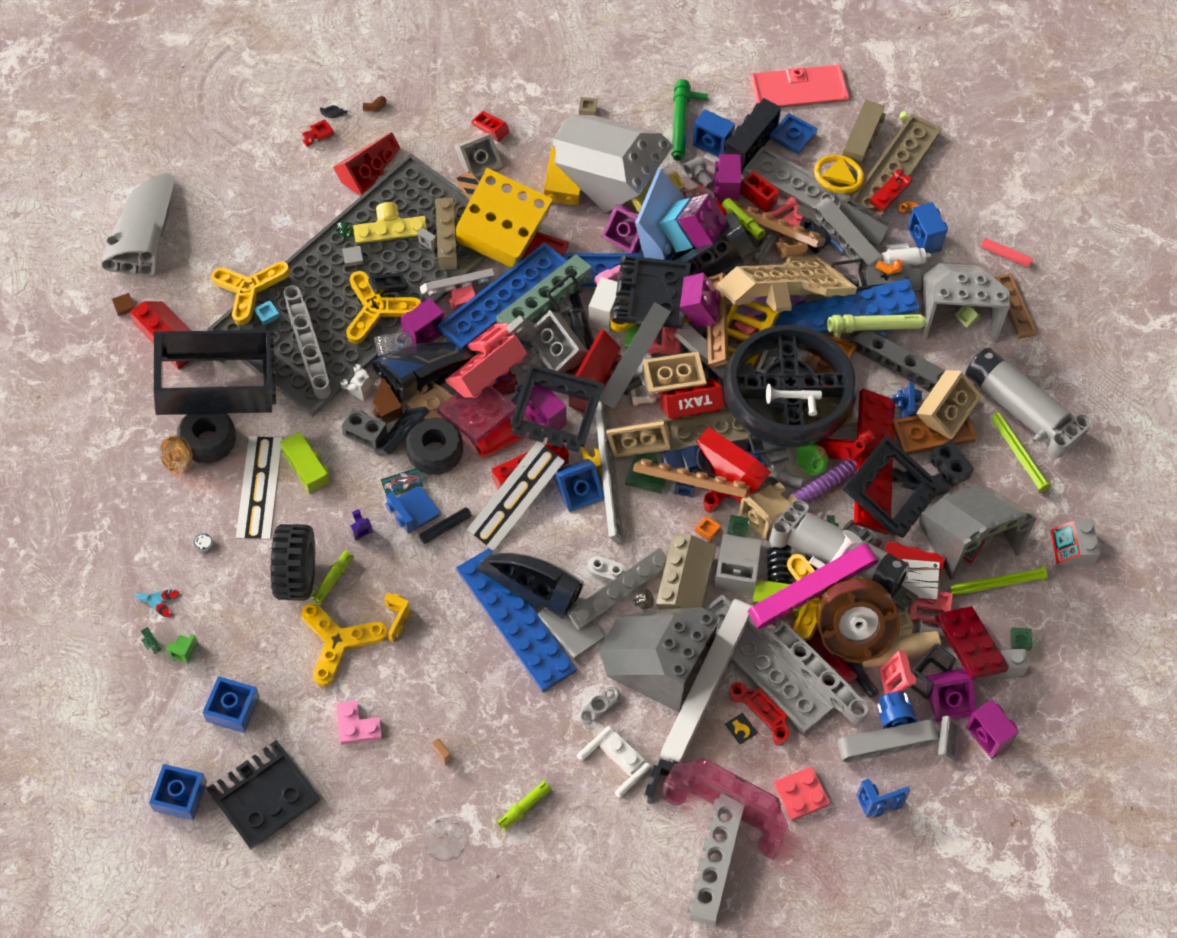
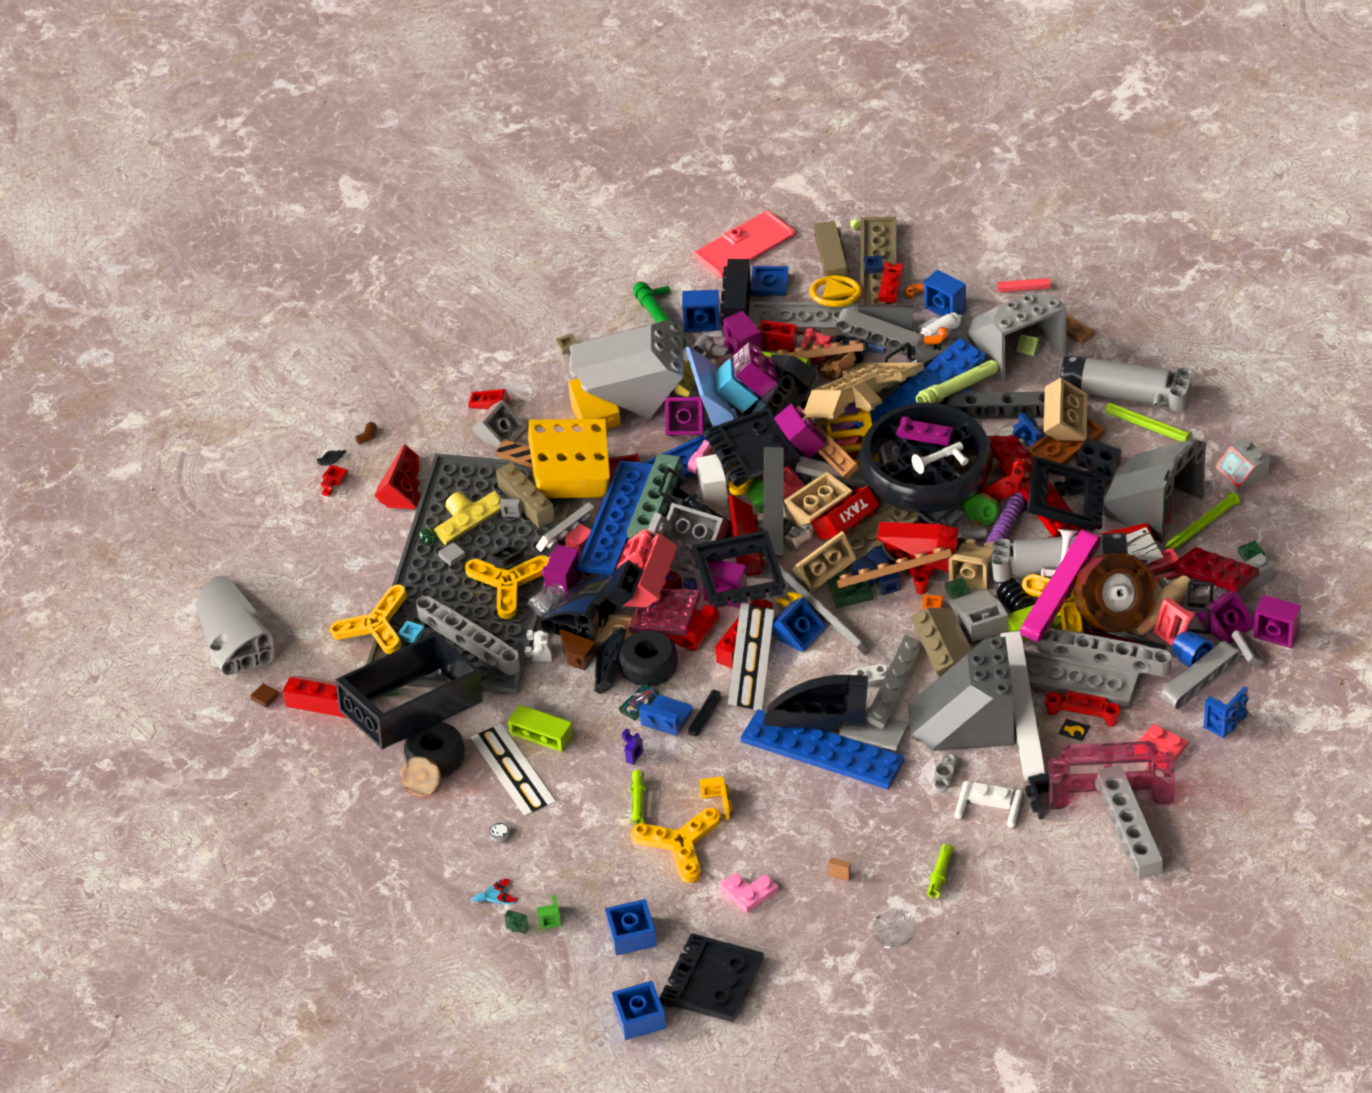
camera: 25 degrees left, 15 degrees down
(292, 562) = (602, 792): black tyre -> none
(362, 432) = (573, 677): dark grey brick -> none
(452, 368) = (623, 583): none -> black brick
(644, 599) = (921, 679): clear smoke tile -> none
(799, 364) = (924, 432): none -> magenta plate
(887, 165) = (873, 264): none -> dark blue plate

